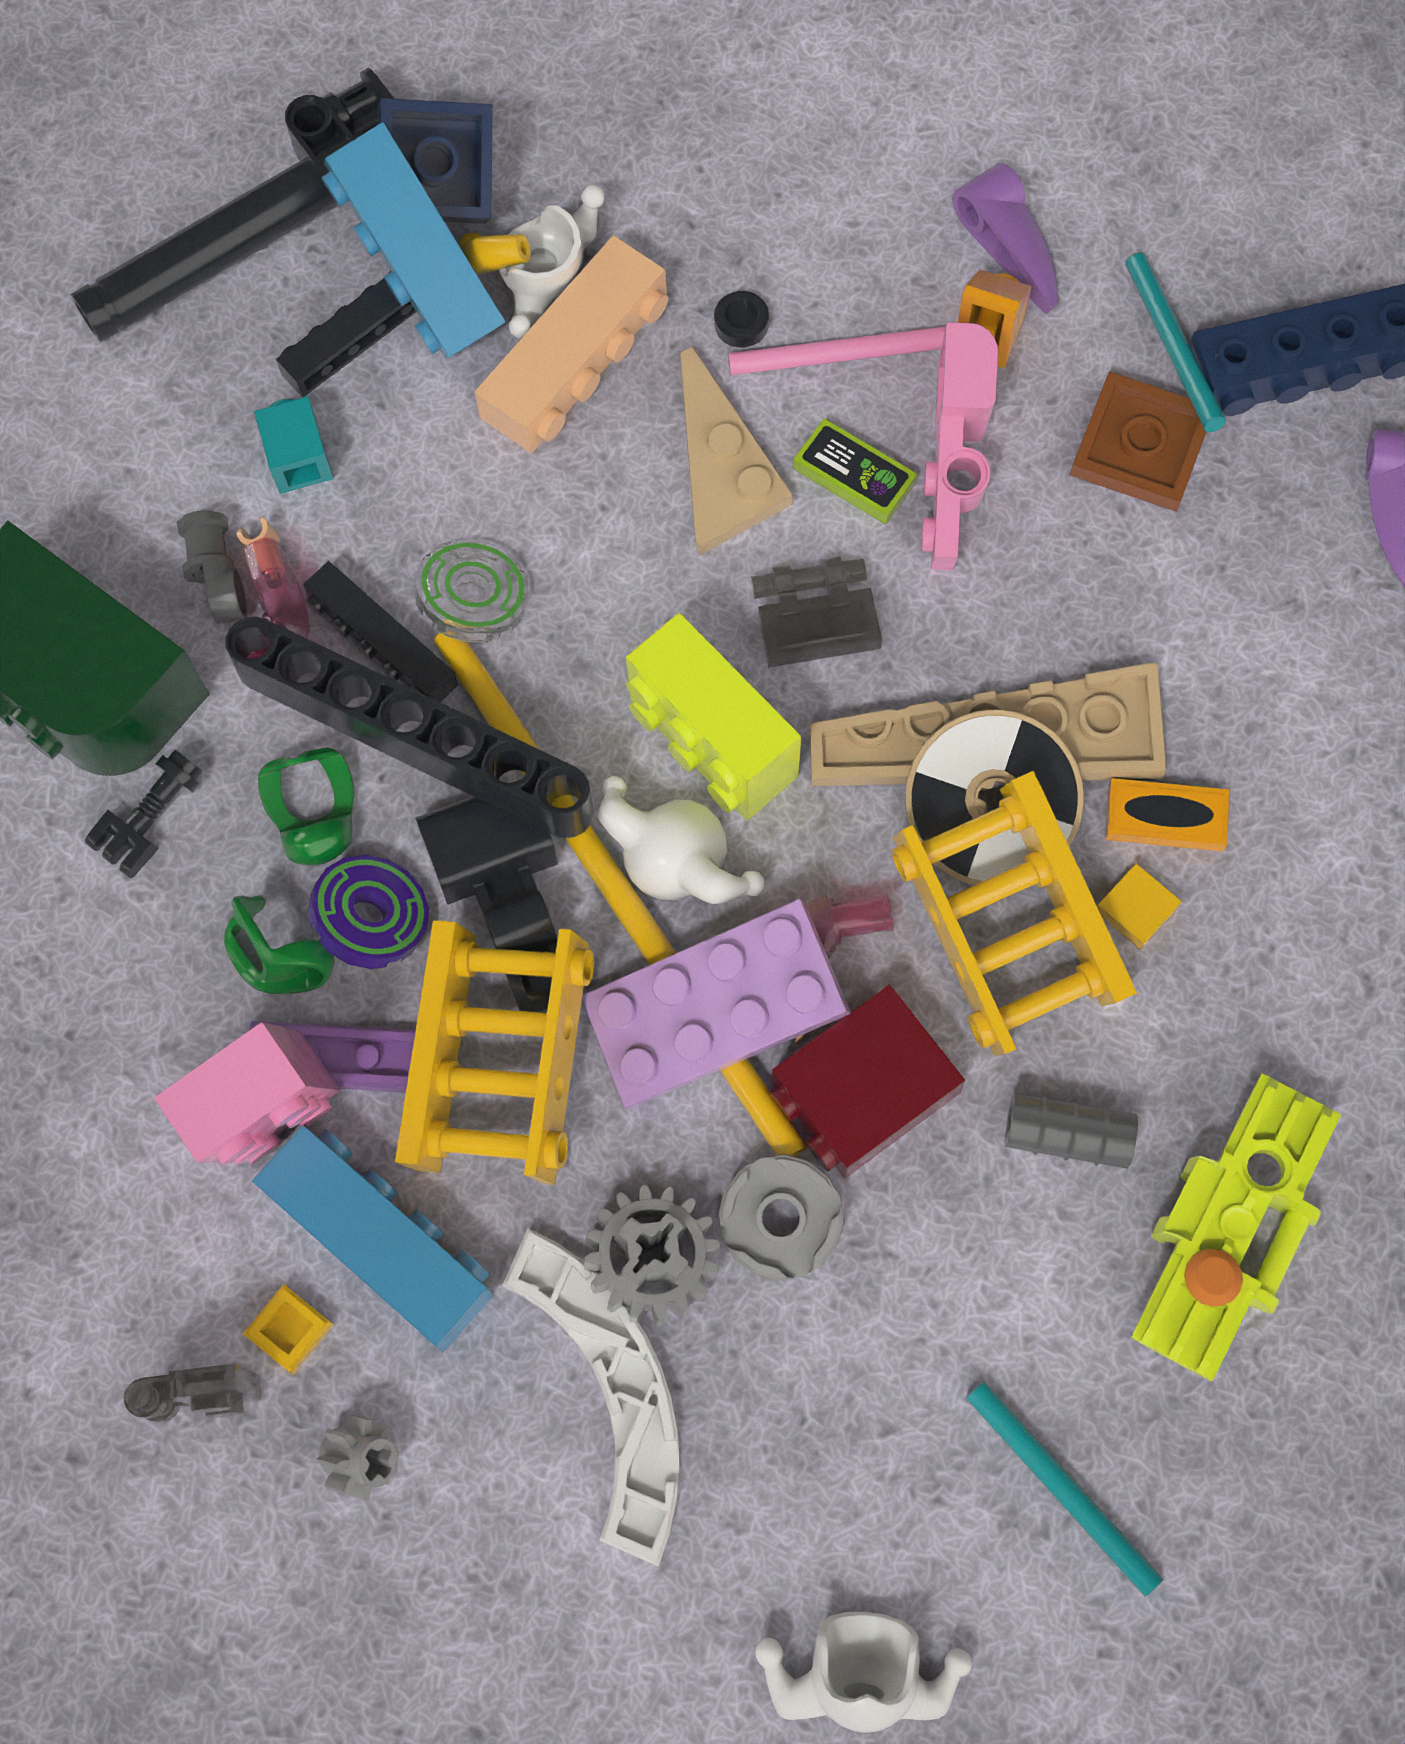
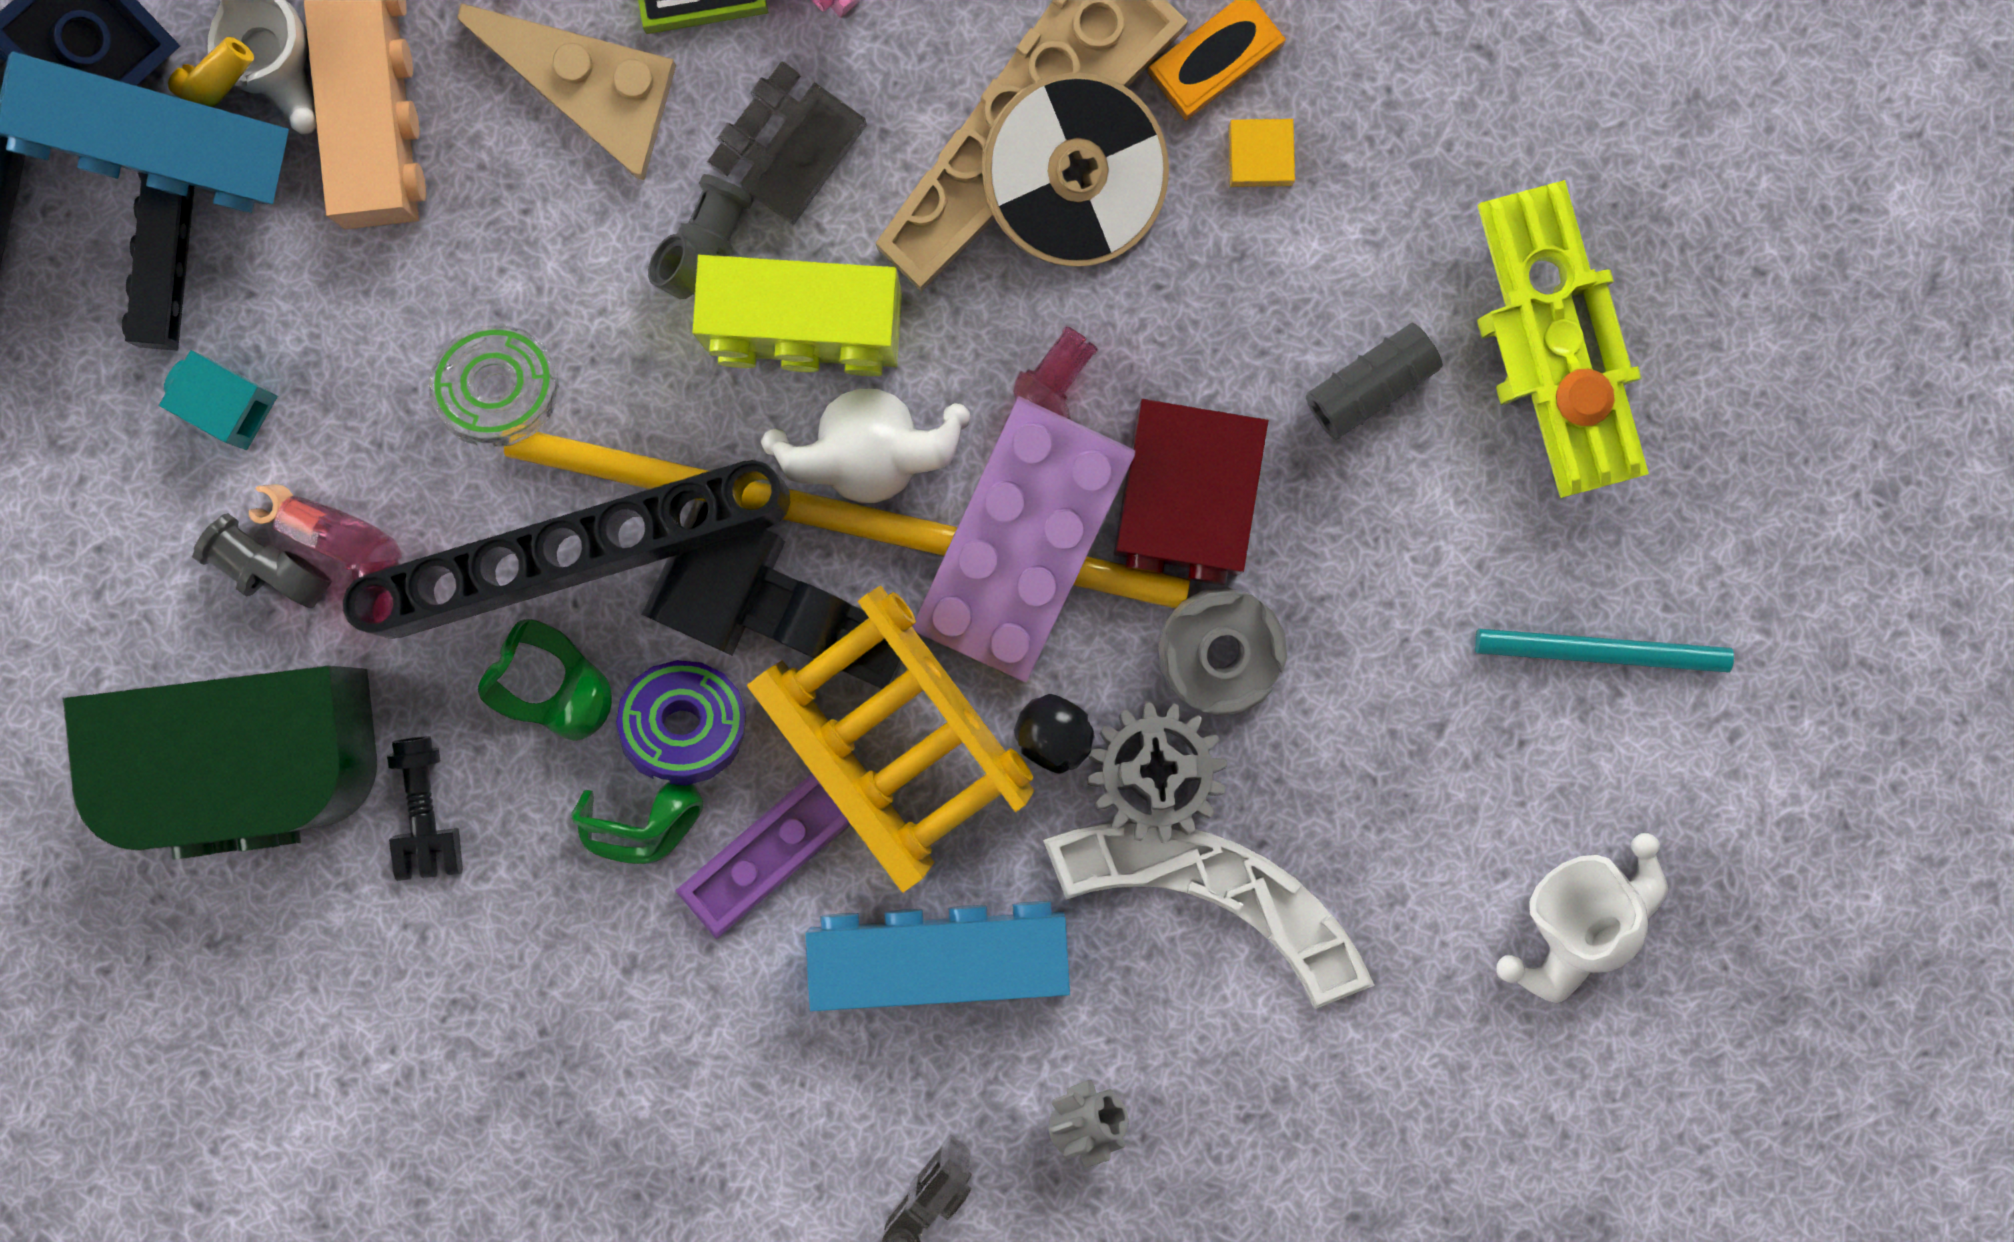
camera: 50 degrees left, 15 degrees up
(249, 1096) = (752, 959): bright pink brick -> none
(288, 1329) = (939, 1082): yellow tile -> none
(378, 633) = (456, 493): black piece -> none
(607, 1158) = (1054, 733): none -> black piece
(710, 617) = (707, 233): none -> dark grey connector
(1048, 866) = (1230, 214): yellow fence -> none

